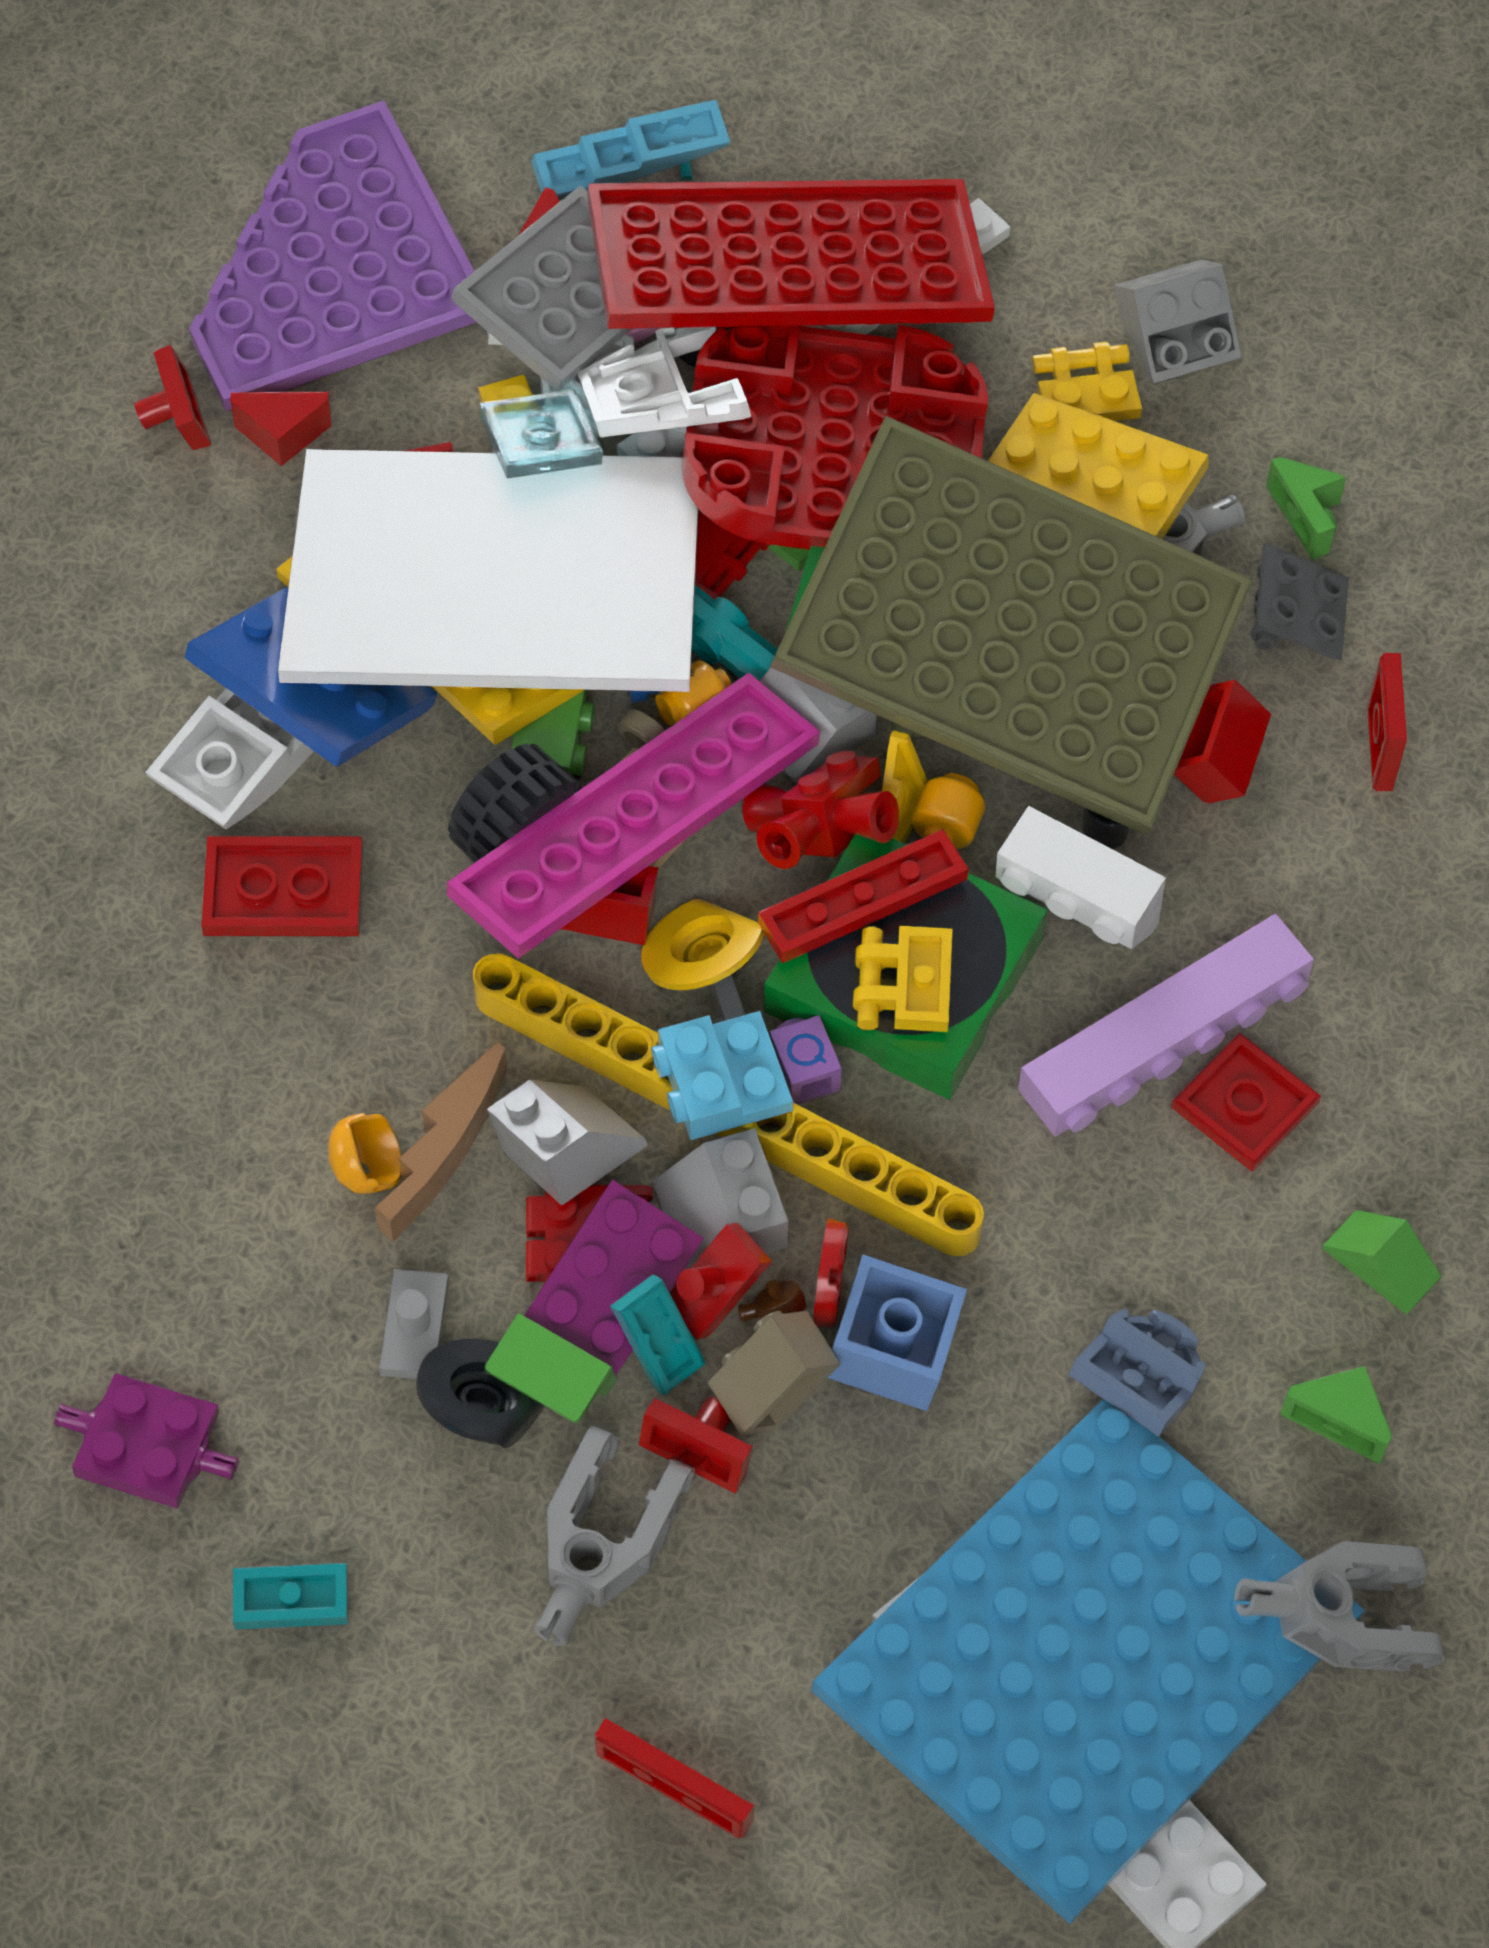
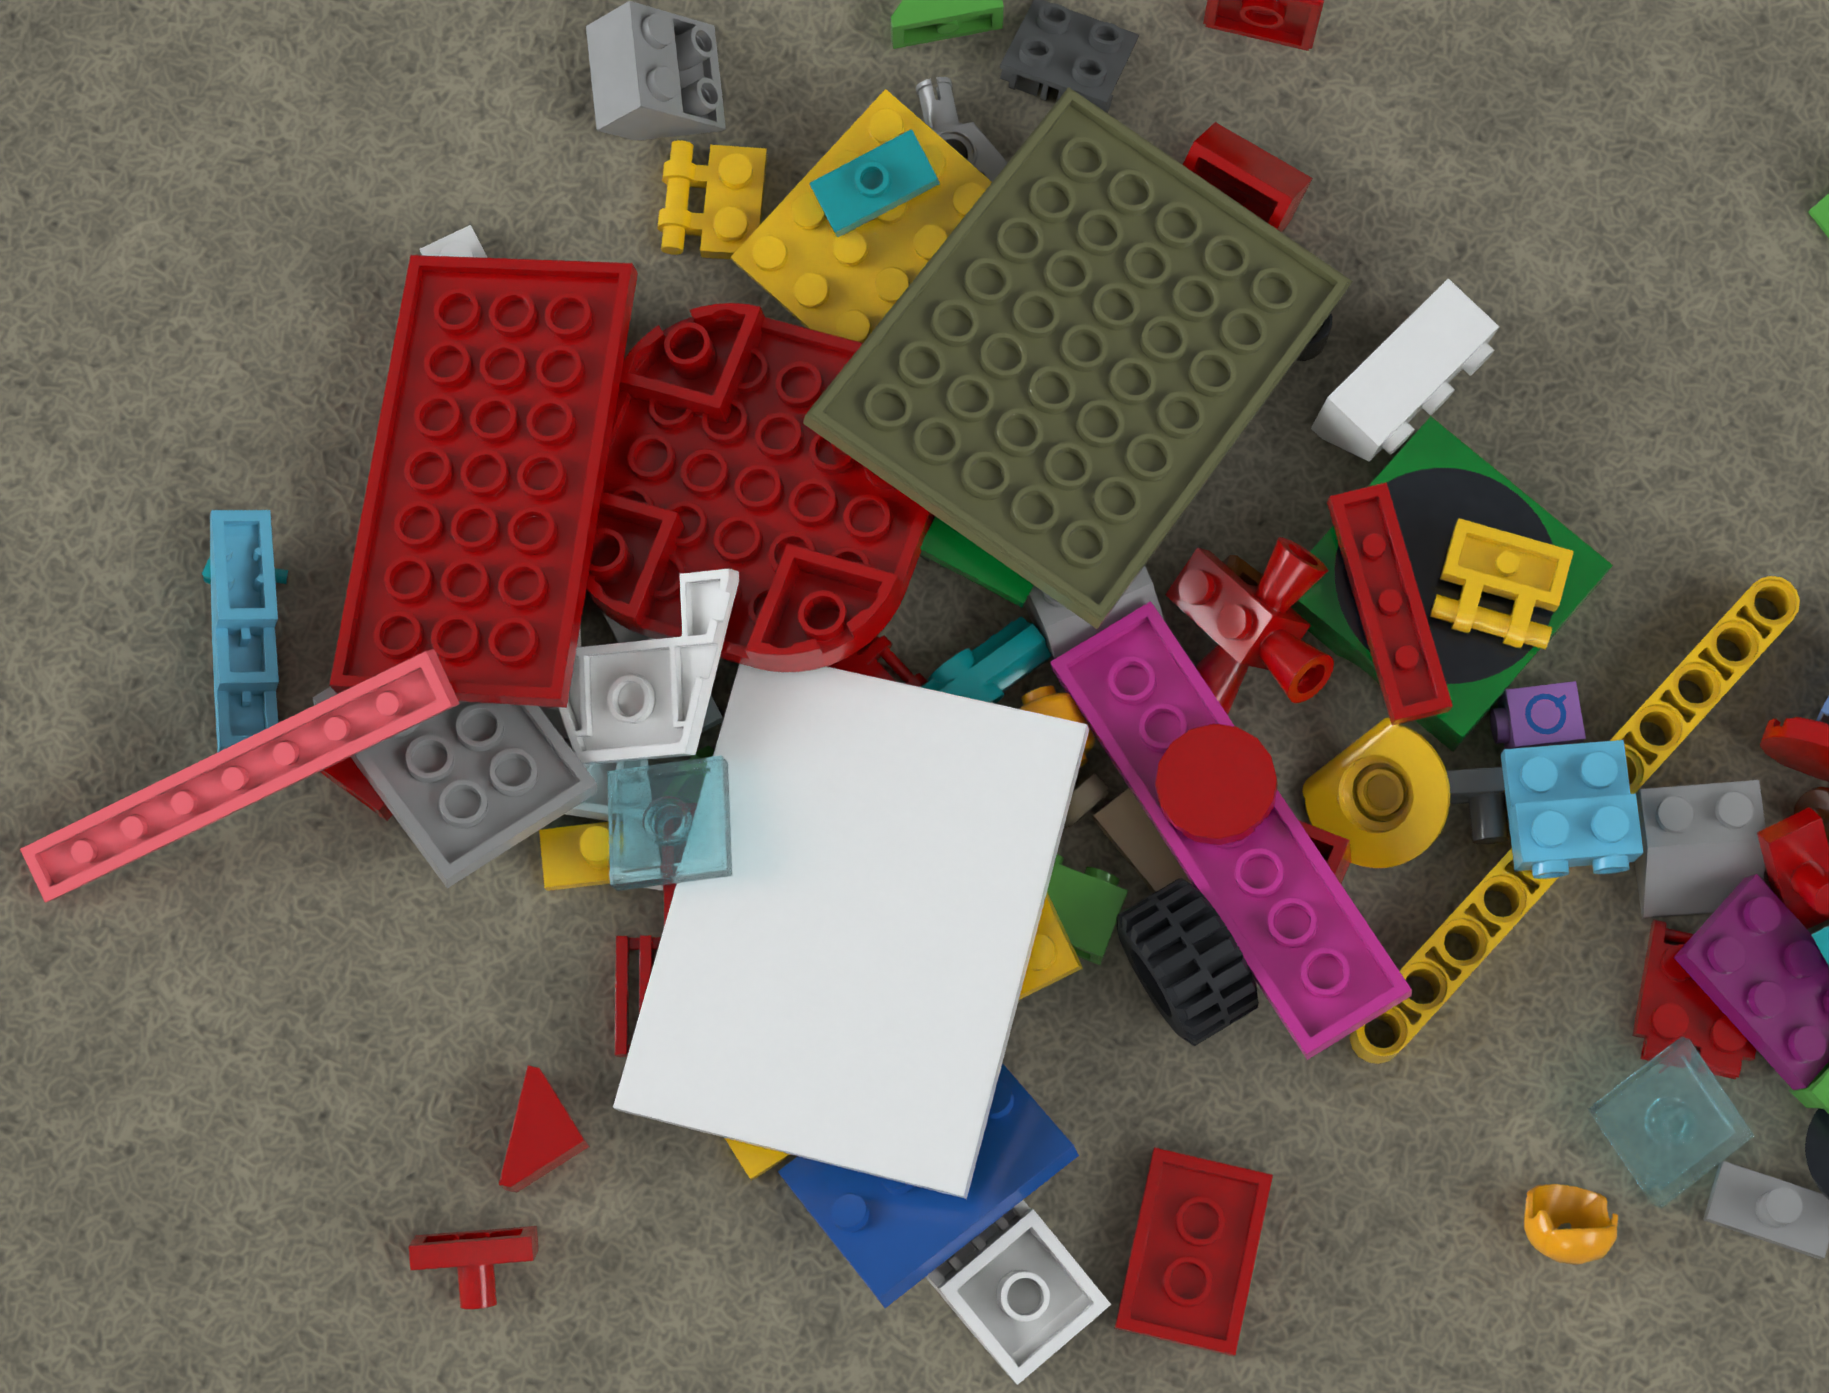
camera: 75 degrees left, 15 degrees up
(333, 264) = (312, 1021): medium lavender plate -> none
(450, 1130) = (1545, 1114): medium nougat slope -> none
(471, 1223) = (1671, 1122): none -> clear light blue plate
(508, 154) = (240, 775): none -> coral plate
(562, 1136) = (1592, 993): light grey slope -> none
(665, 787) = (1216, 784): none -> red tile
(904, 779) = (1232, 534): yellow tile -> none
(950, 805) = (1264, 492): light orange head -> none
(1119, 458) = (874, 183): none -> teal plate
(1165, 1026) = (1572, 336): lavender brick -> none
(1246, 1102) = (1665, 282): red tile -> none

